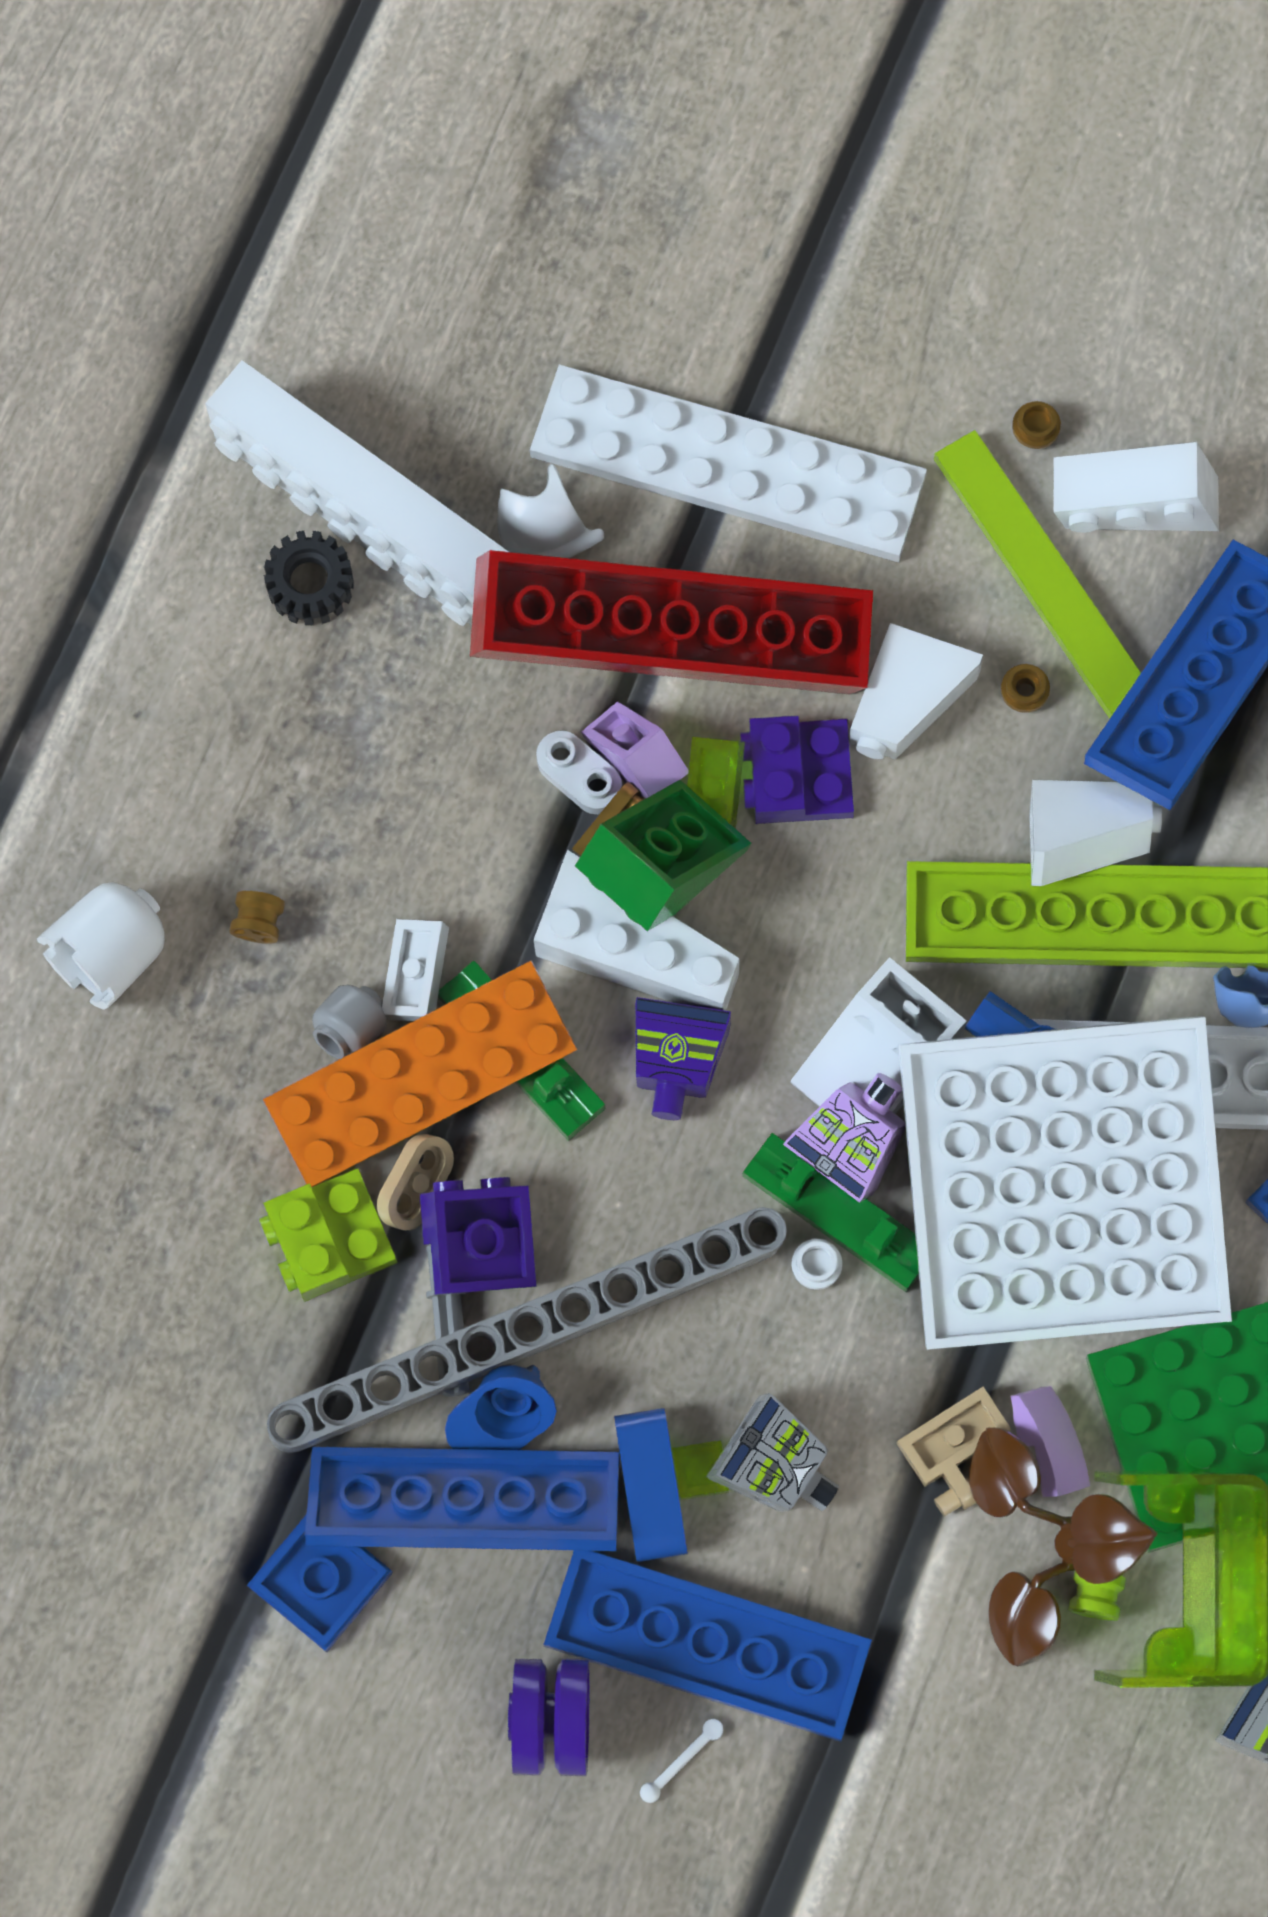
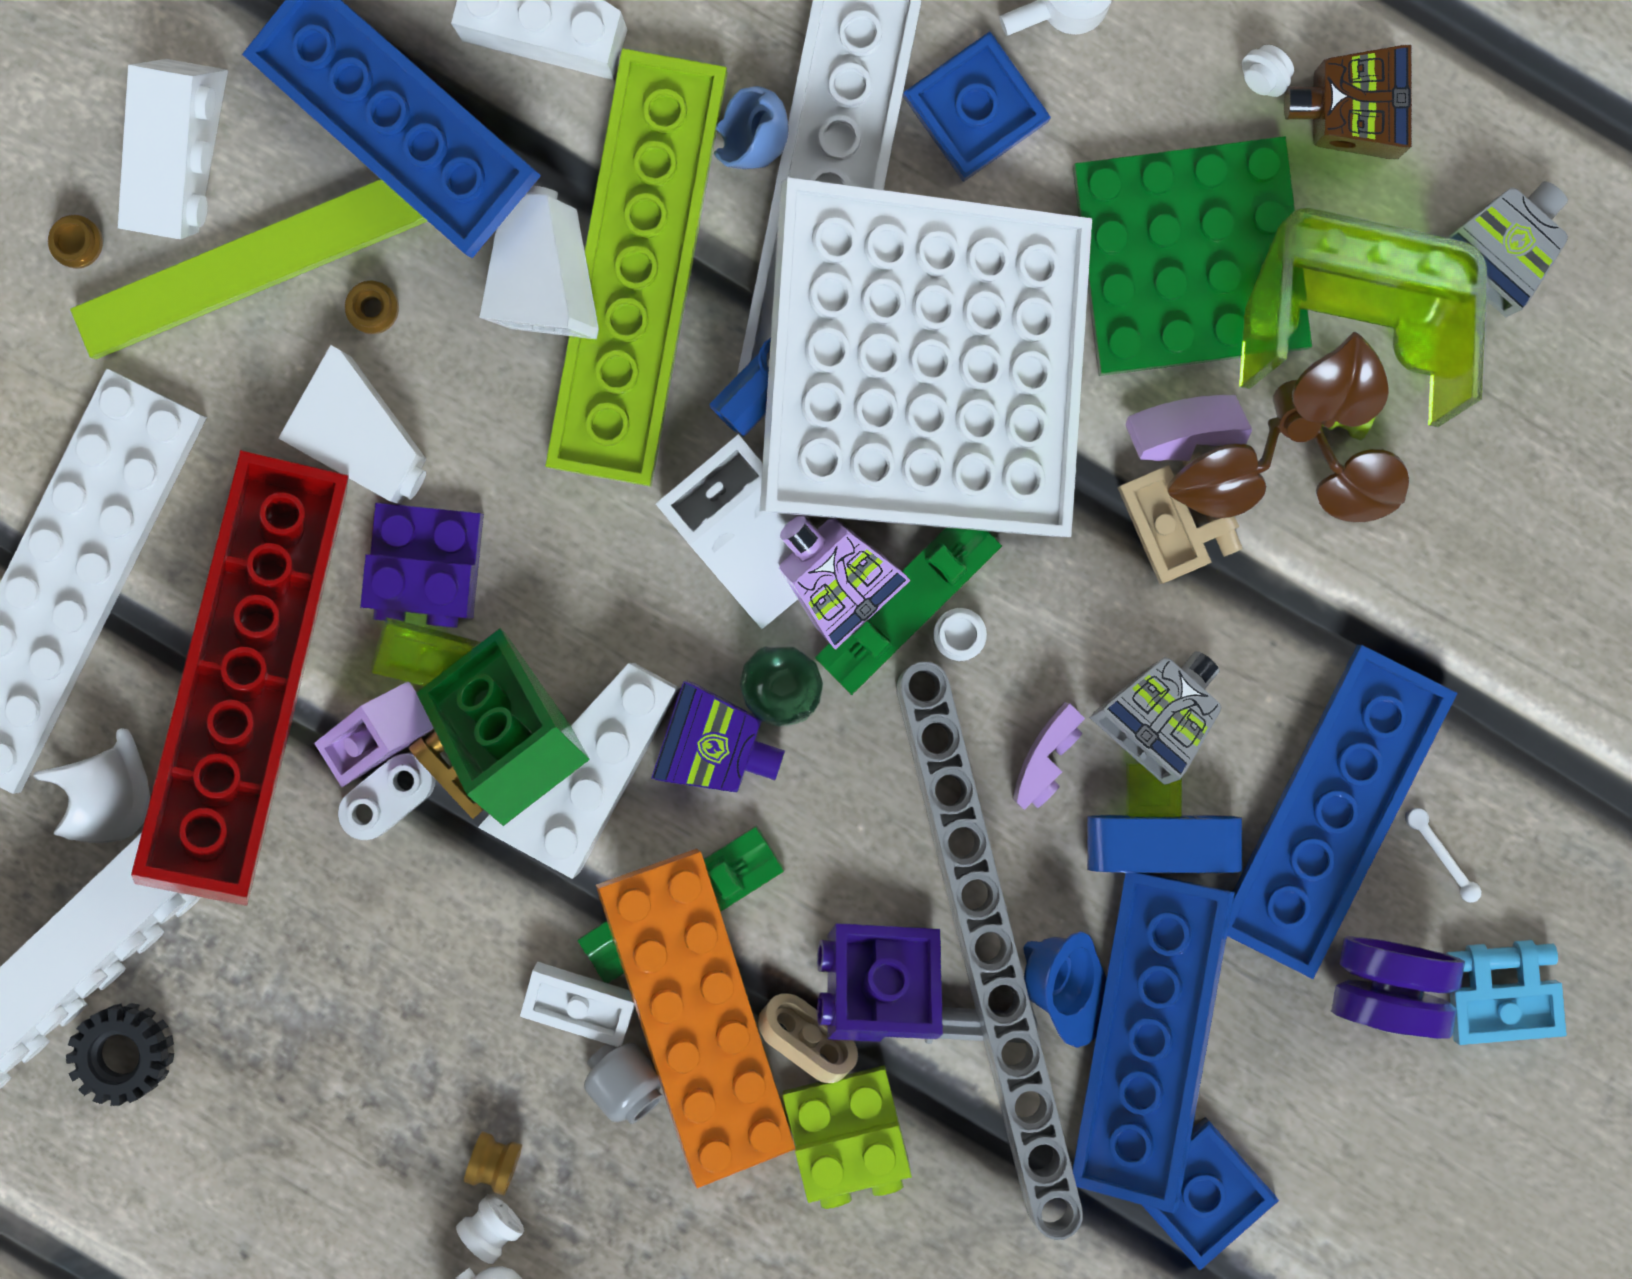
camera: 90 degrees left, 15 degrees up
(196, 924) = (490, 1229): none -> white wheel
(541, 1841) = (1508, 1010): none -> medium azure plate
(699, 1354) = (1038, 773): none -> lavender slope
(740, 1103) = (781, 685): none -> clear green hair

